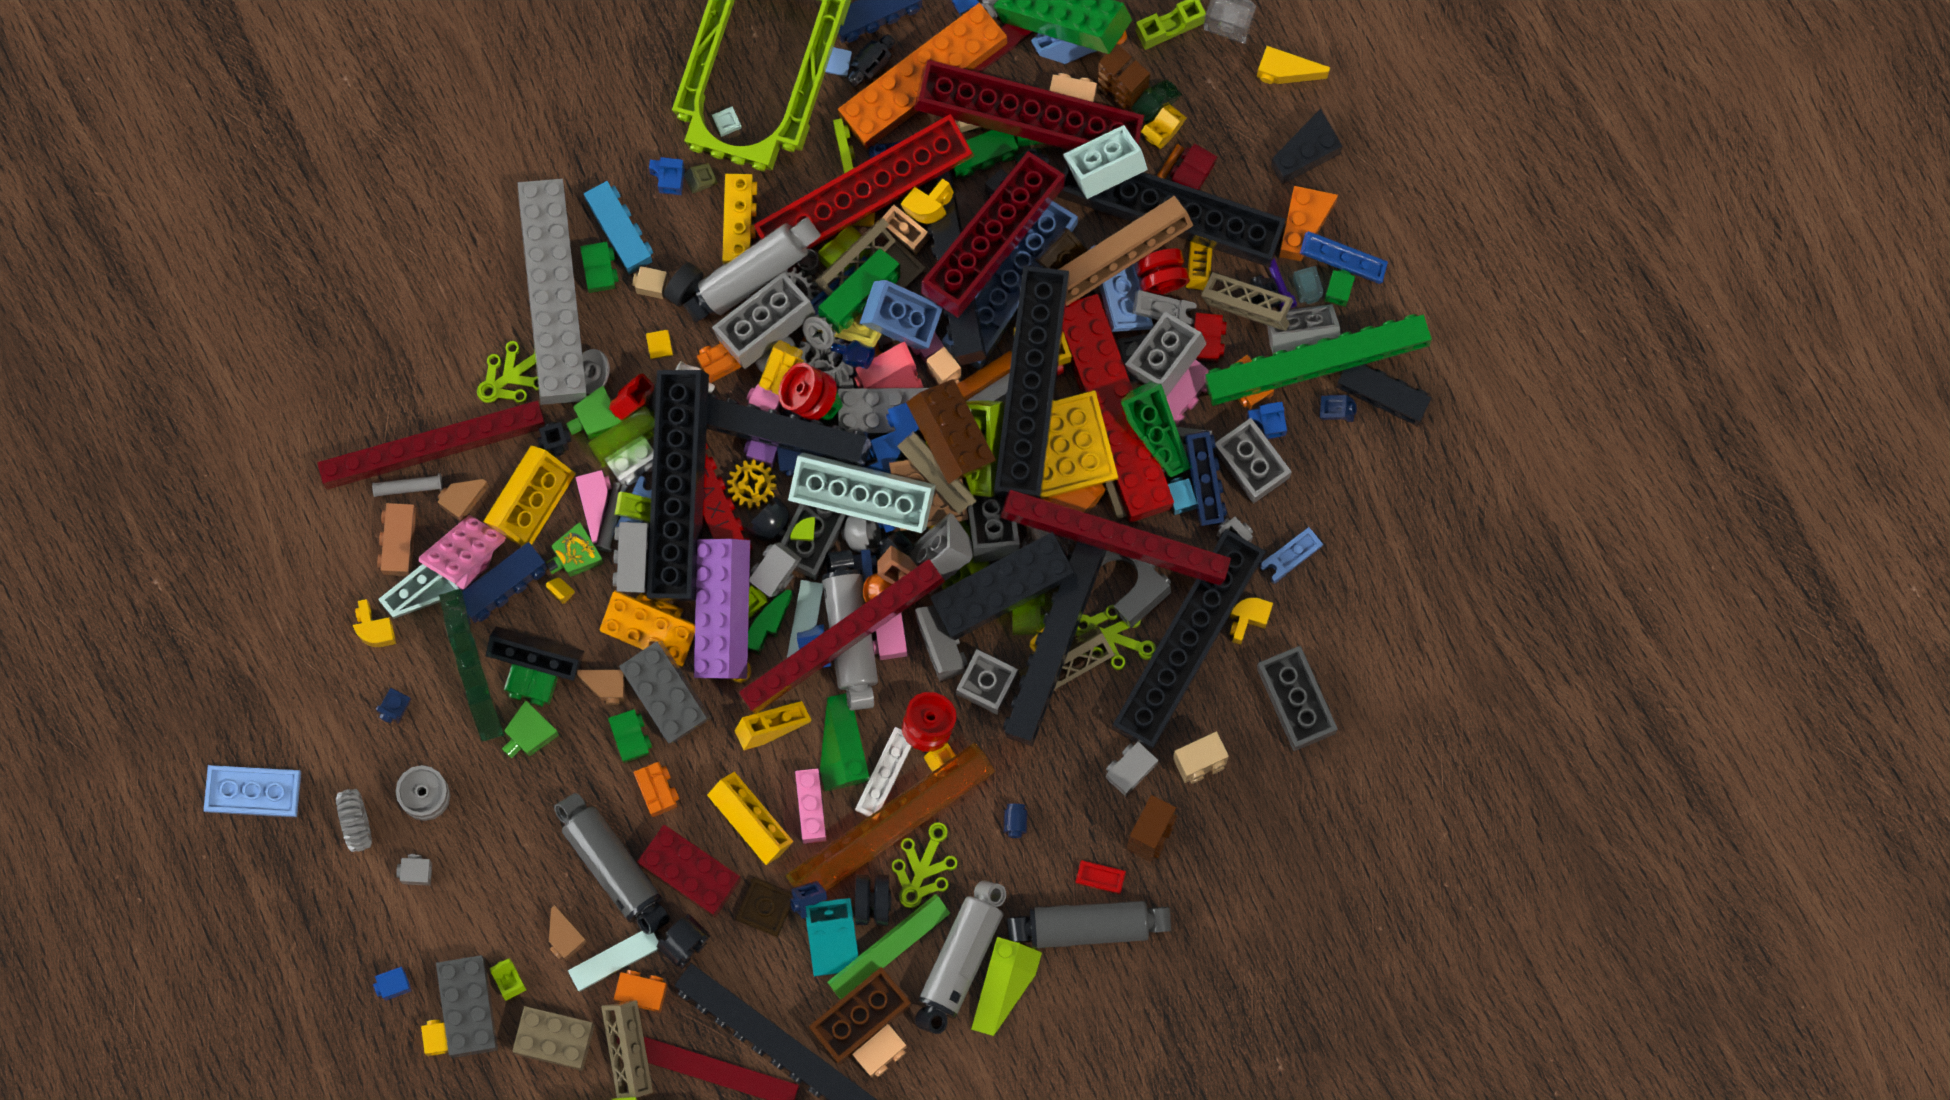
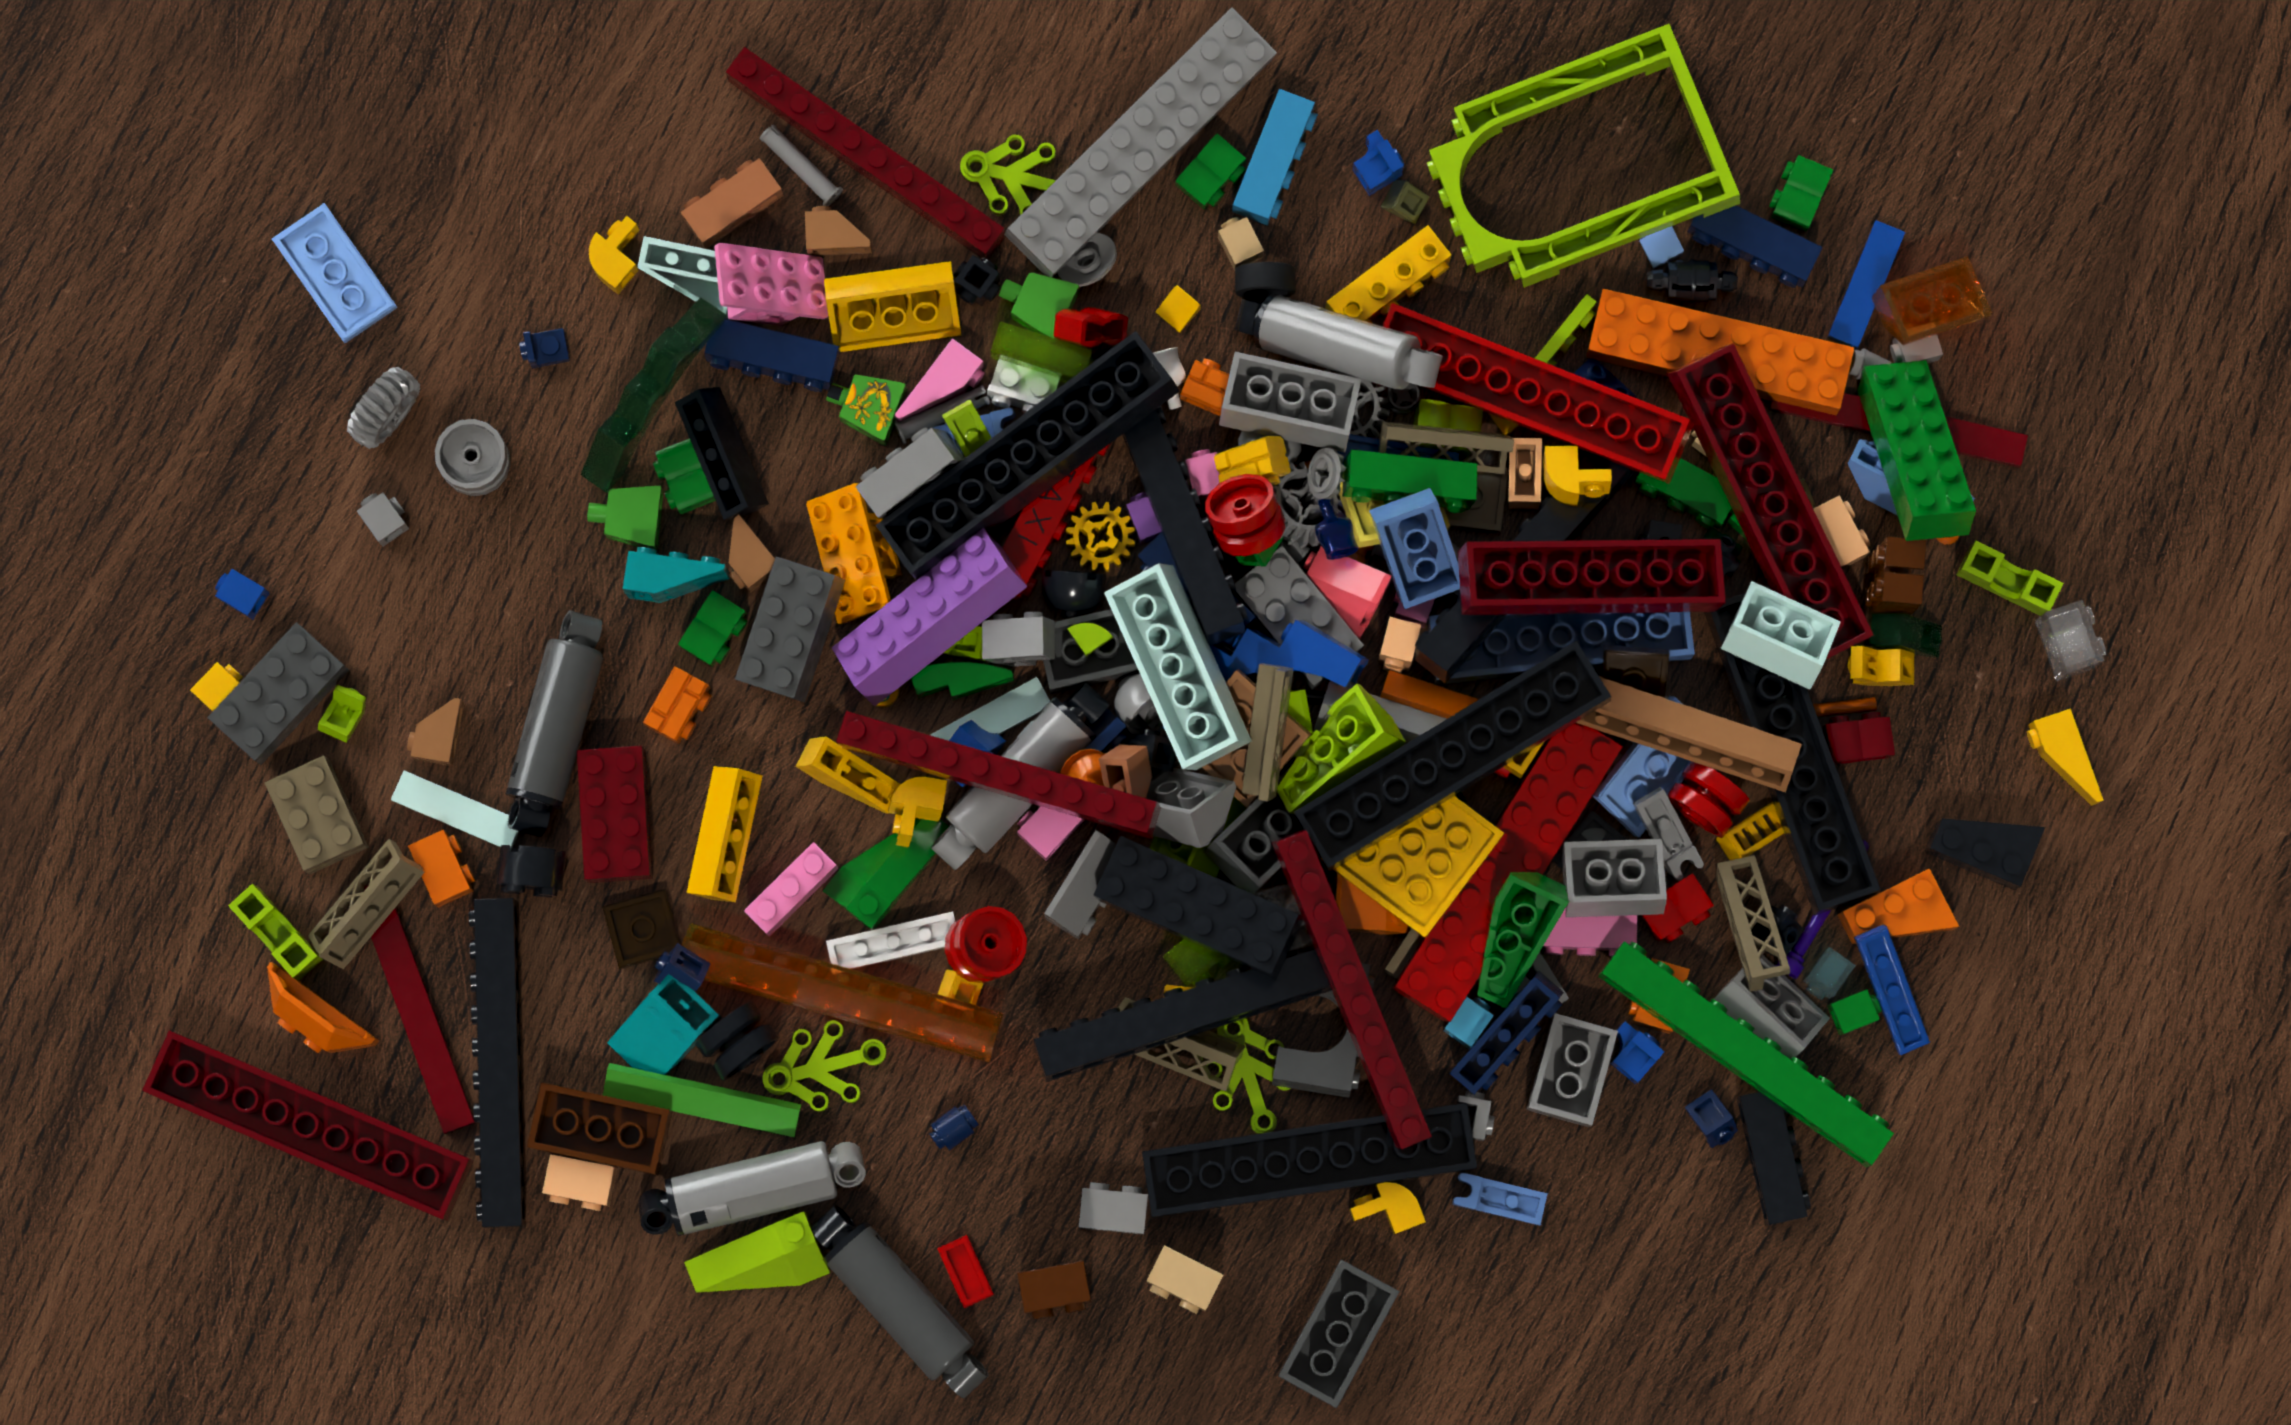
camera: 50 degrees right, 5 degrees up
(560, 589) = (817, 422): yellow slope -> none
(578, 738) = (667, 577): none -> teal slope
(726, 121) = (1493, 178): light aqua tile -> none
(816, 699) = (916, 799): none -> yellow brick
(950, 431) = (1320, 710): reddish brown brick -> none
(987, 682) = (1082, 973): light grey brick -> none

